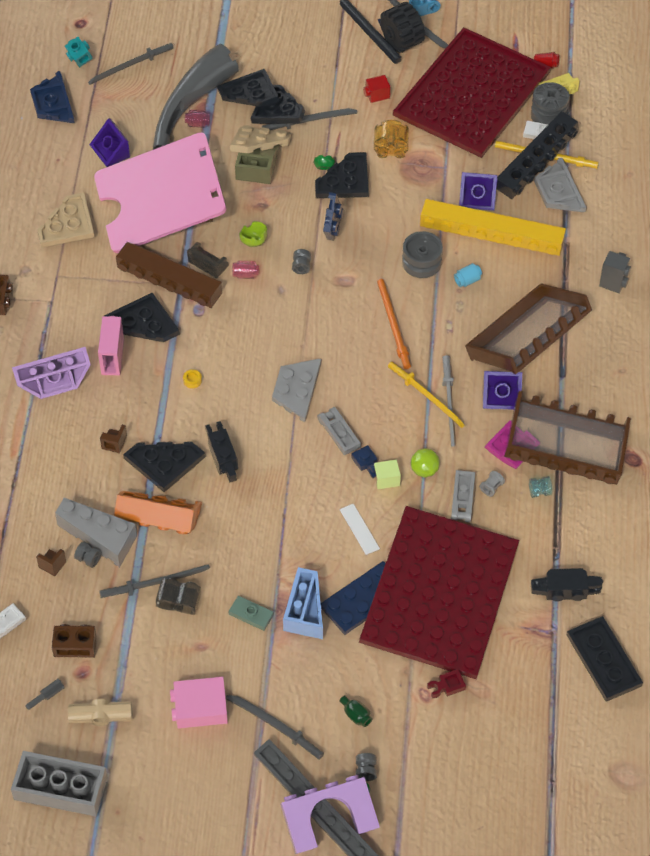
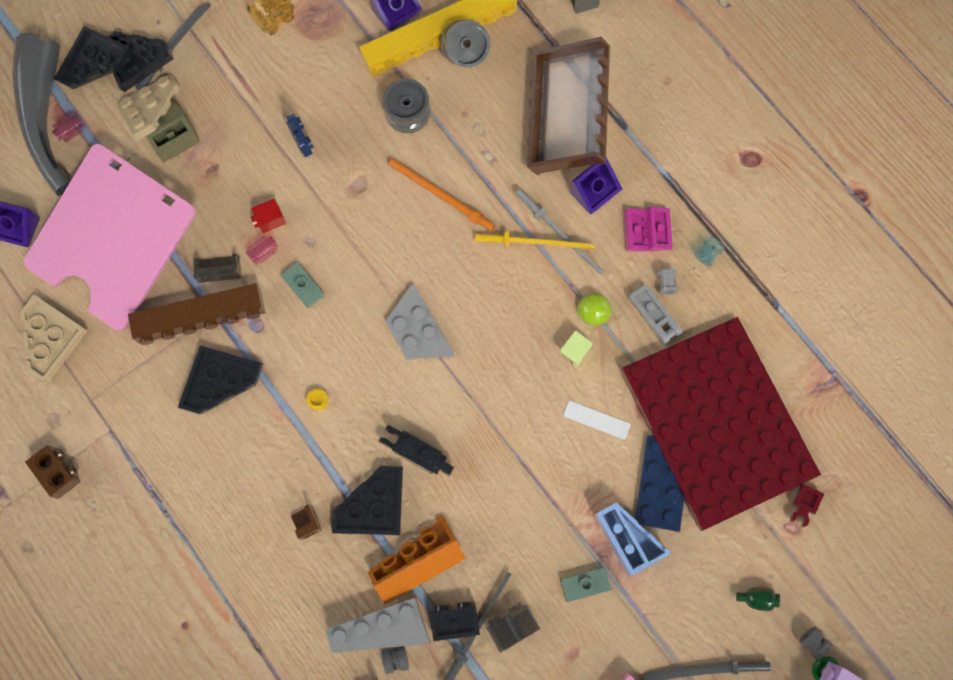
camera: 40 degrees left, 20 degrees up
(53, 374) = (187, 509): lavender wedge -> none
(111, 345) = (216, 434): bright pink brick -> none
(145, 561) = (454, 622): none -> black bracket
(250, 309) = (302, 285): none -> sand green plate
(253, 235) = (236, 207): lime hair -> none
(268, 253) = (267, 216): none -> red brick
(301, 261) = (305, 200): dark grey wheel -> none
(324, 163) = (230, 81): green plate -> none
(339, 431) = (495, 341): light grey plate -> none
(345, 178) = (264, 81): black plate -> none
(365, 459) = (542, 349): dark blue plate -> none
(468, 275) = (462, 93): medium azure brick -> none
(486, 244) = (473, 34): none -> dark grey wheel
(567, 440) = (692, 187): clear window -> none
(567, 585) = (812, 326): black hinge -> none
(604, 659) = (901, 367): black plate -> none

